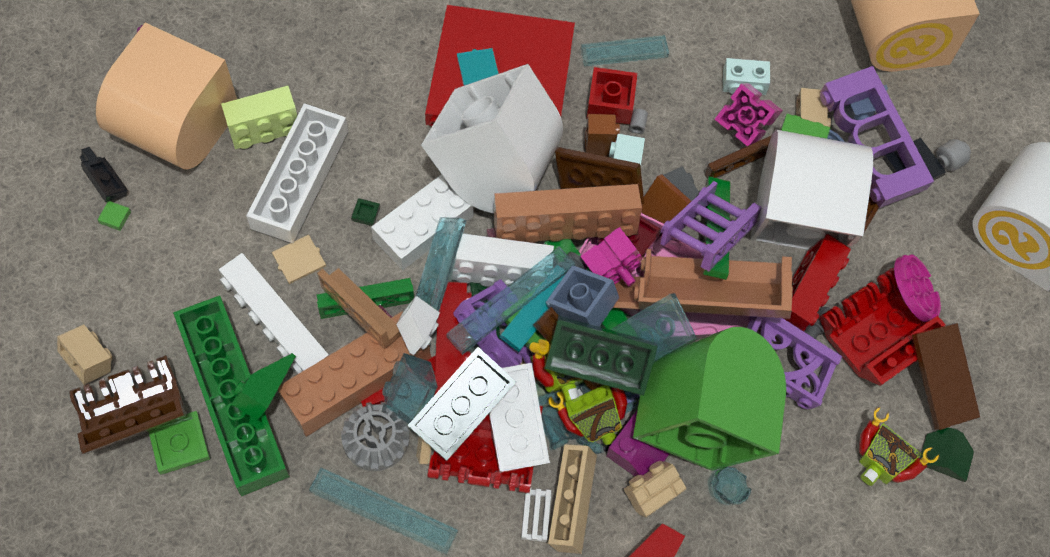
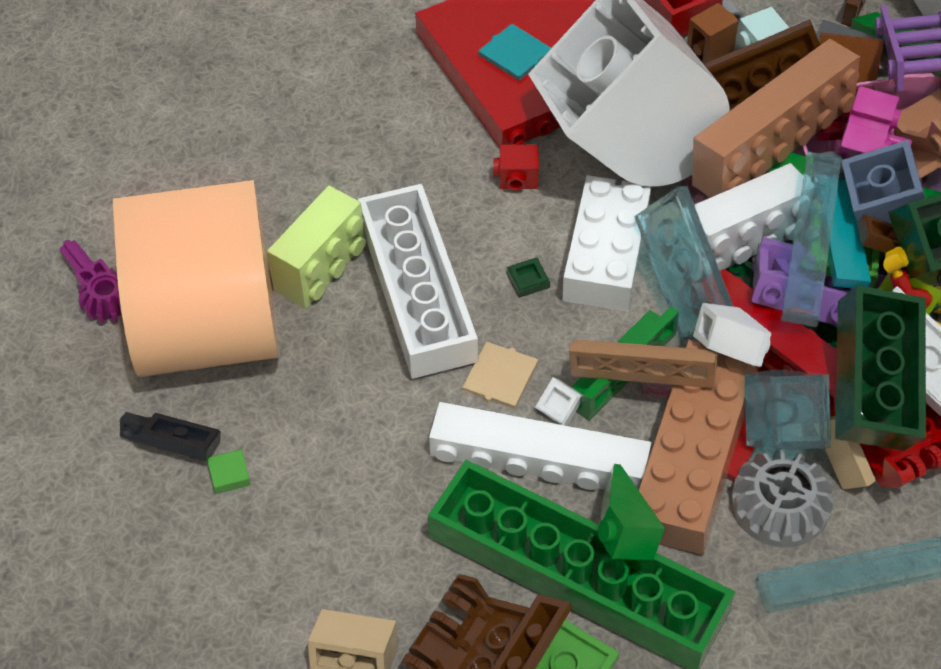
camera: 30 degrees left, 10 degrees down
(309, 296) = (559, 401): none -> white tile
(413, 138) = (517, 167): none -> red brick

